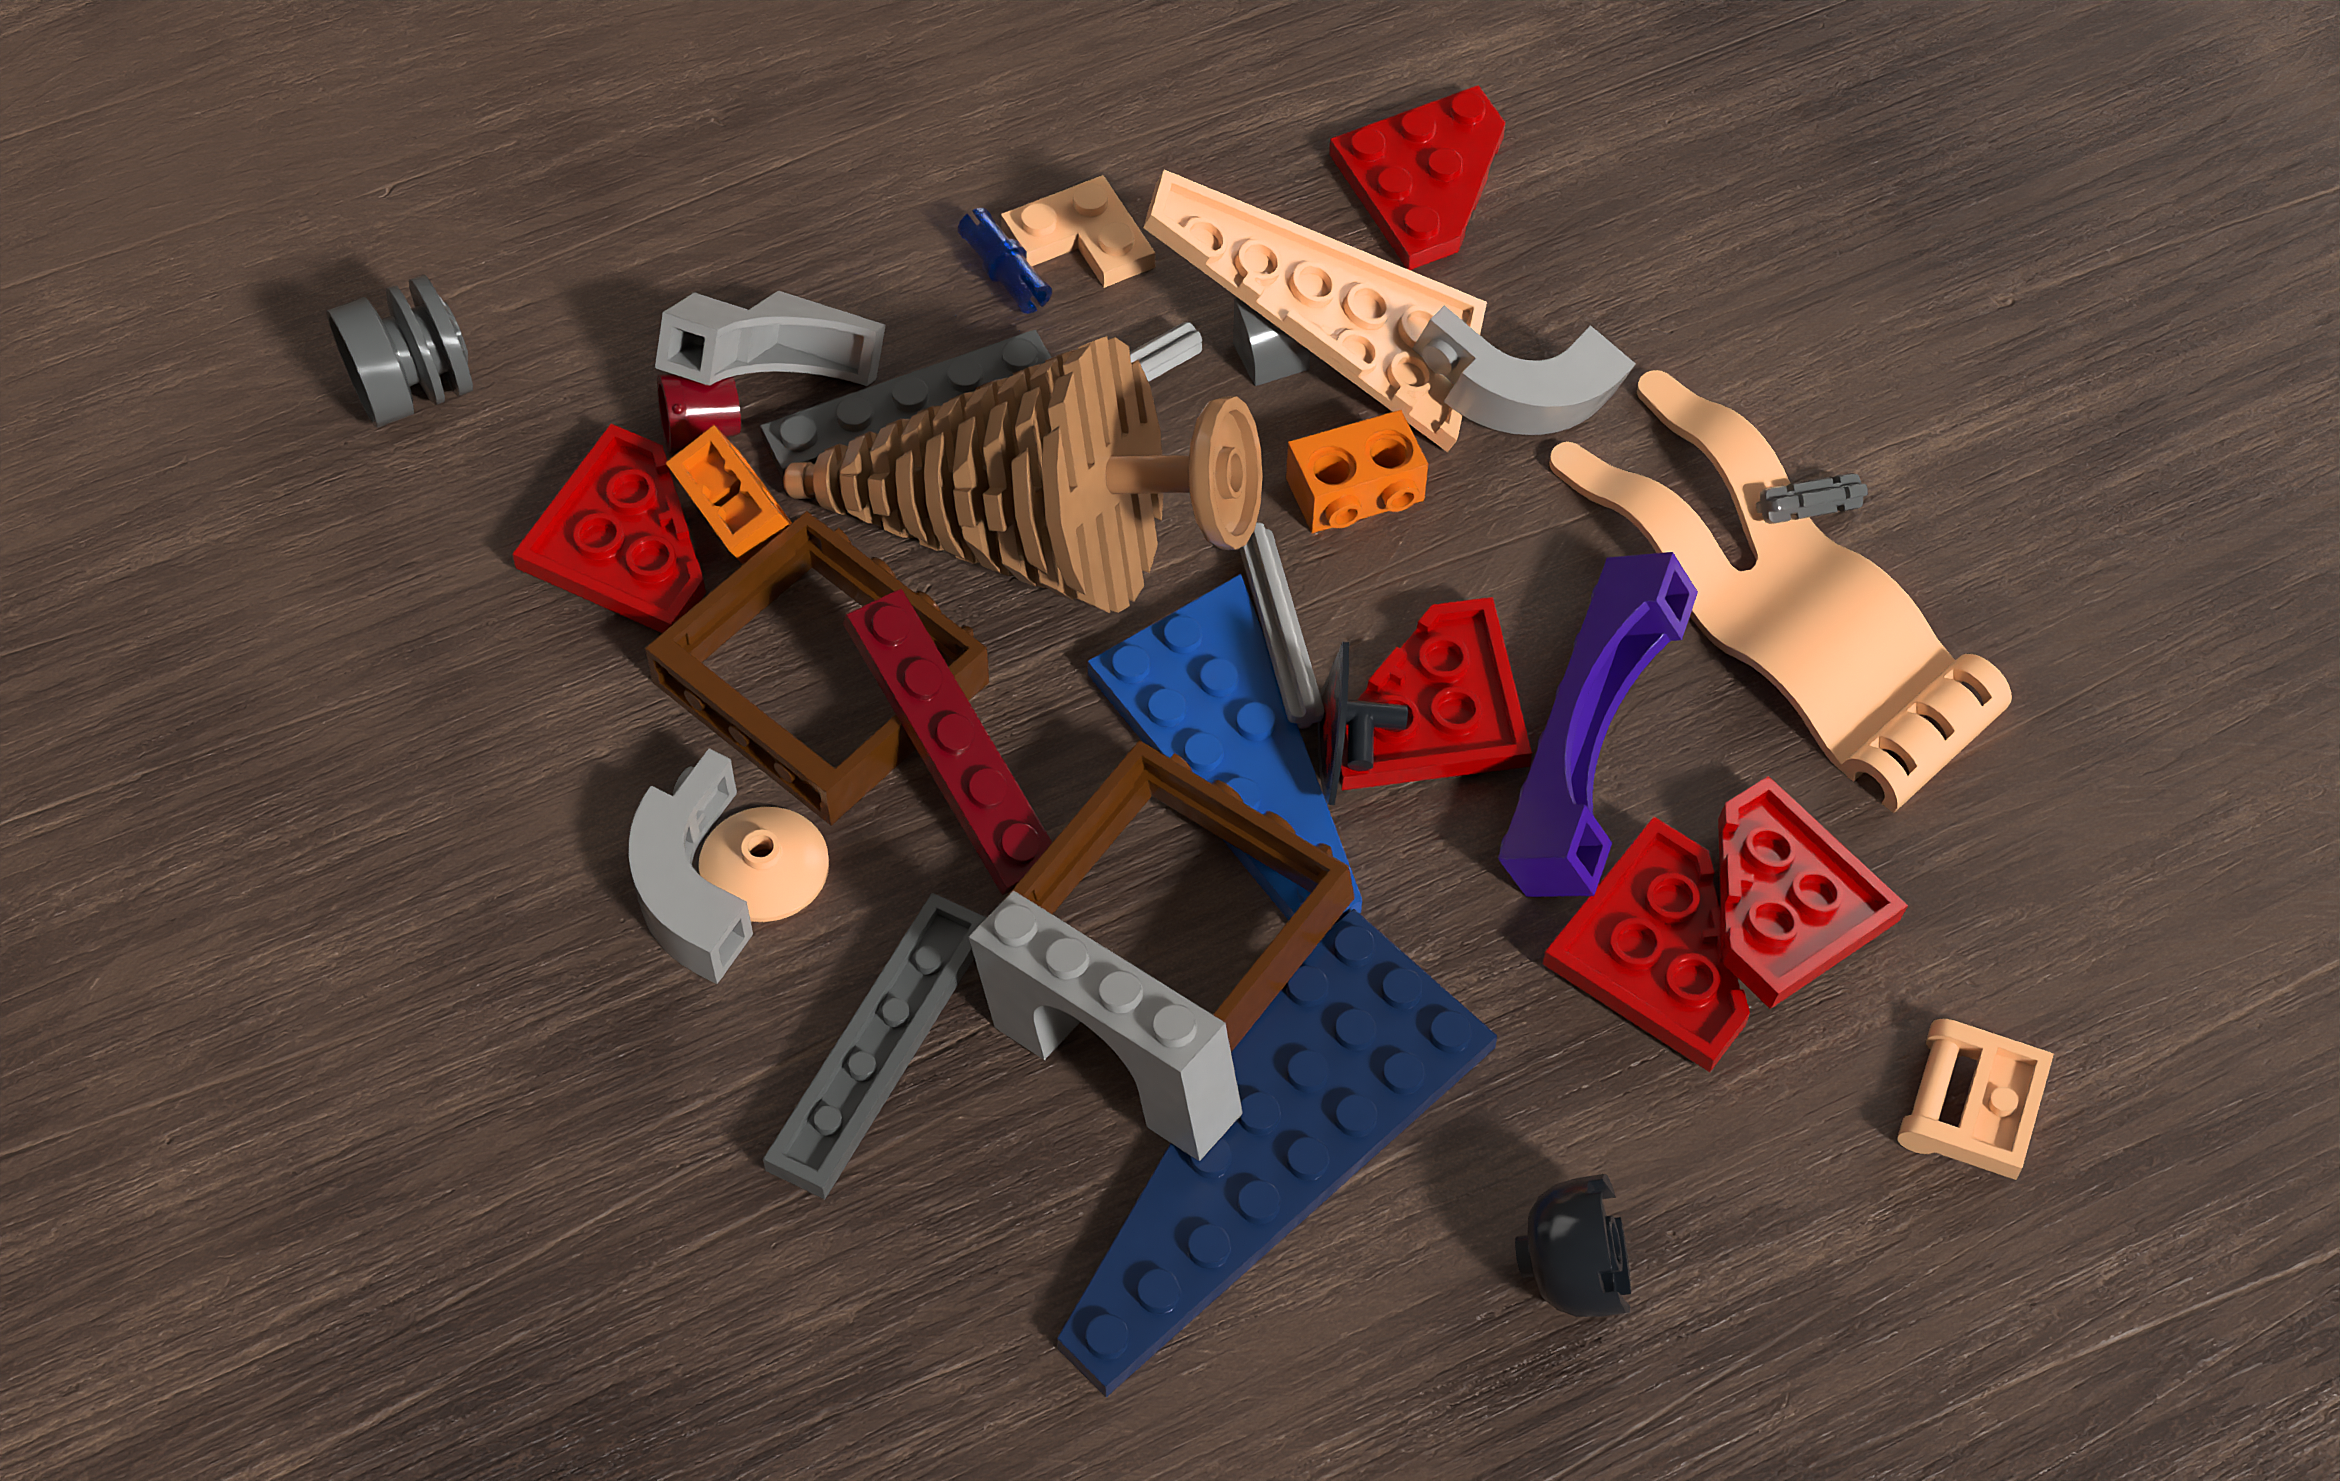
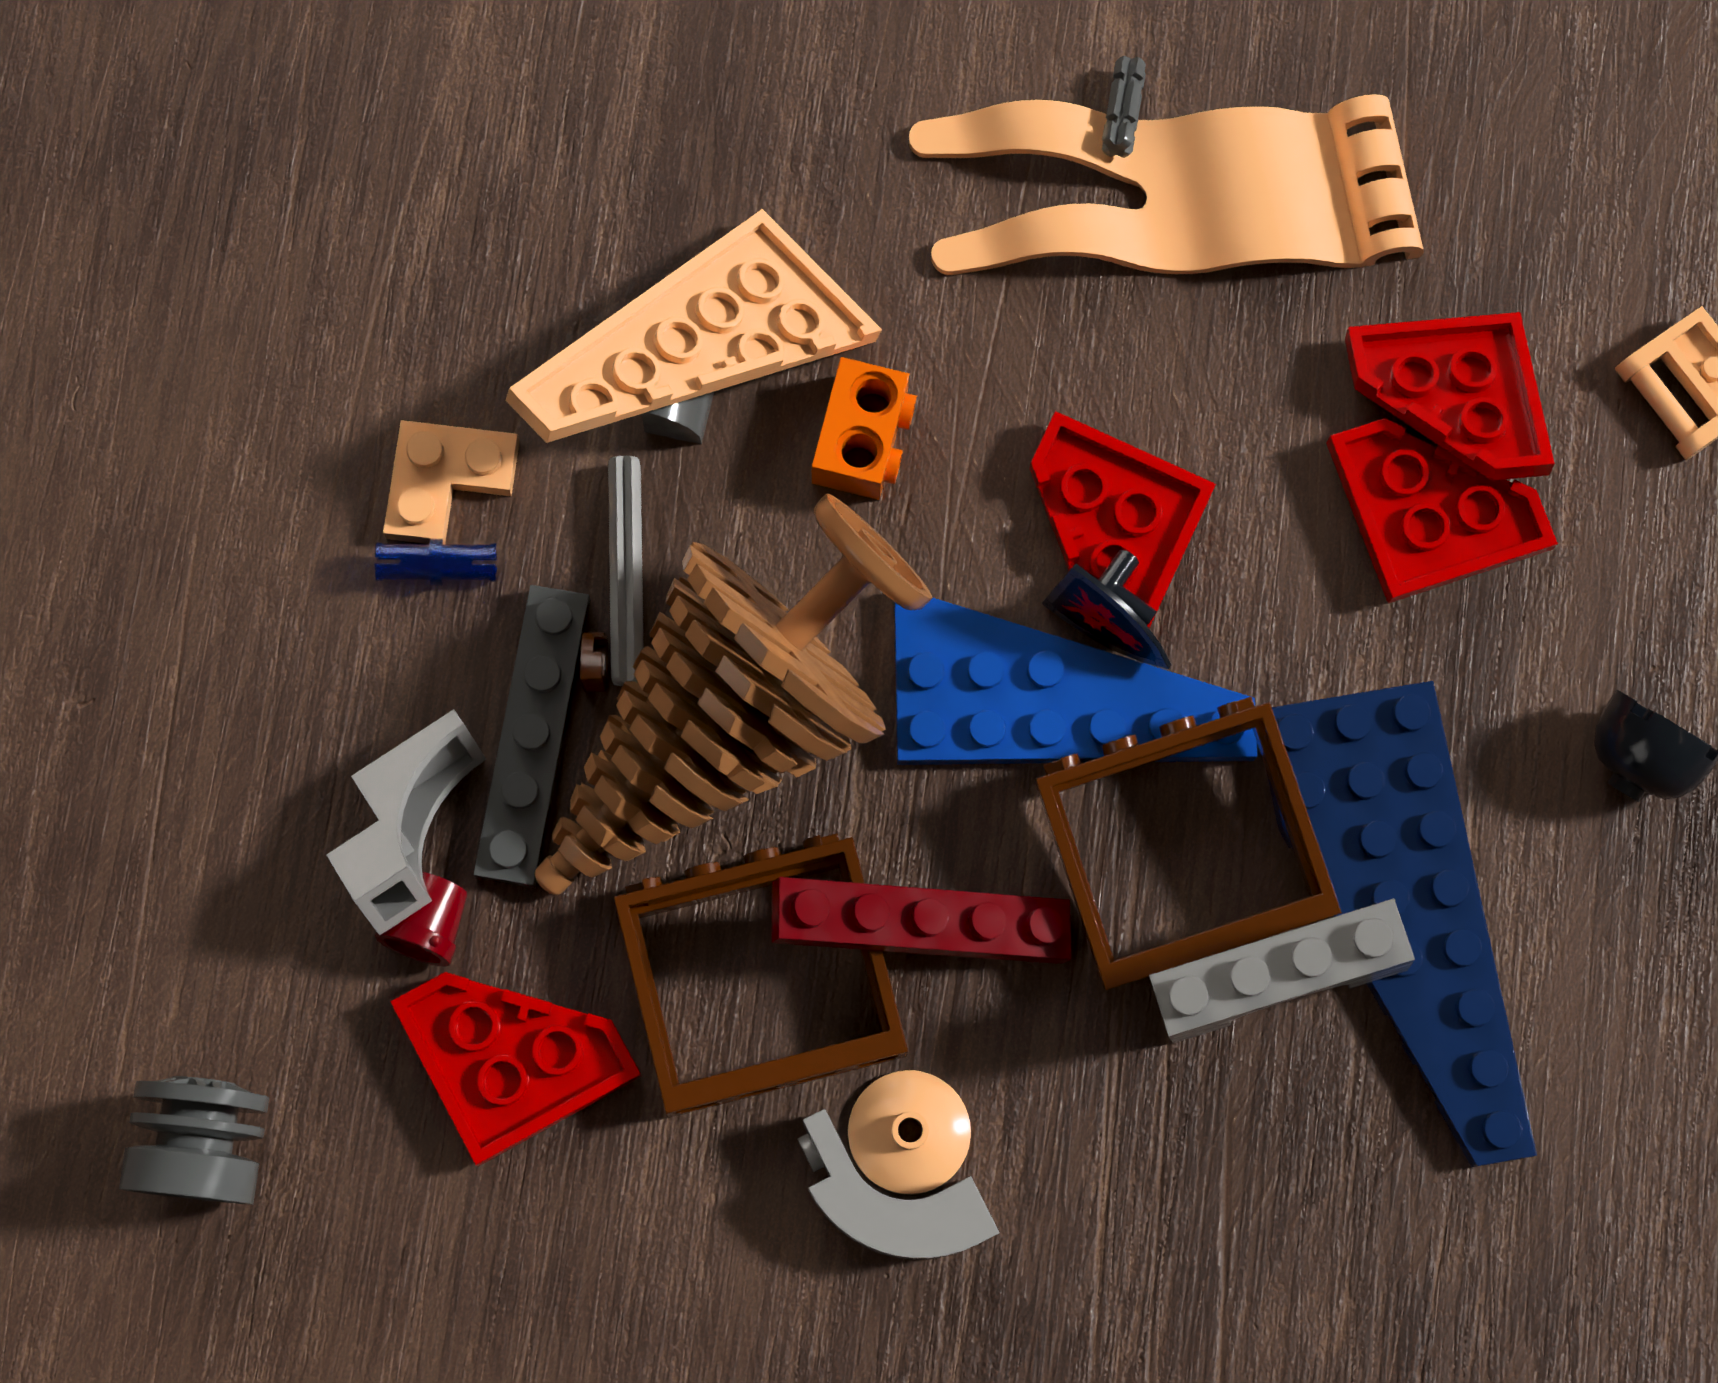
camera: 60 degrees left, 20 degrees up
(729, 494) = (554, 948): orange brick -> none
(875, 1048) = (1145, 1145): dark grey plate -> none
(1281, 629) = (991, 597): light grey axle -> none
(1423, 171) = (580, 157): red plate -> none
(1516, 392) = (898, 212): light grey arch -> none
(1632, 616) = (1146, 318): dark purple arch -> none

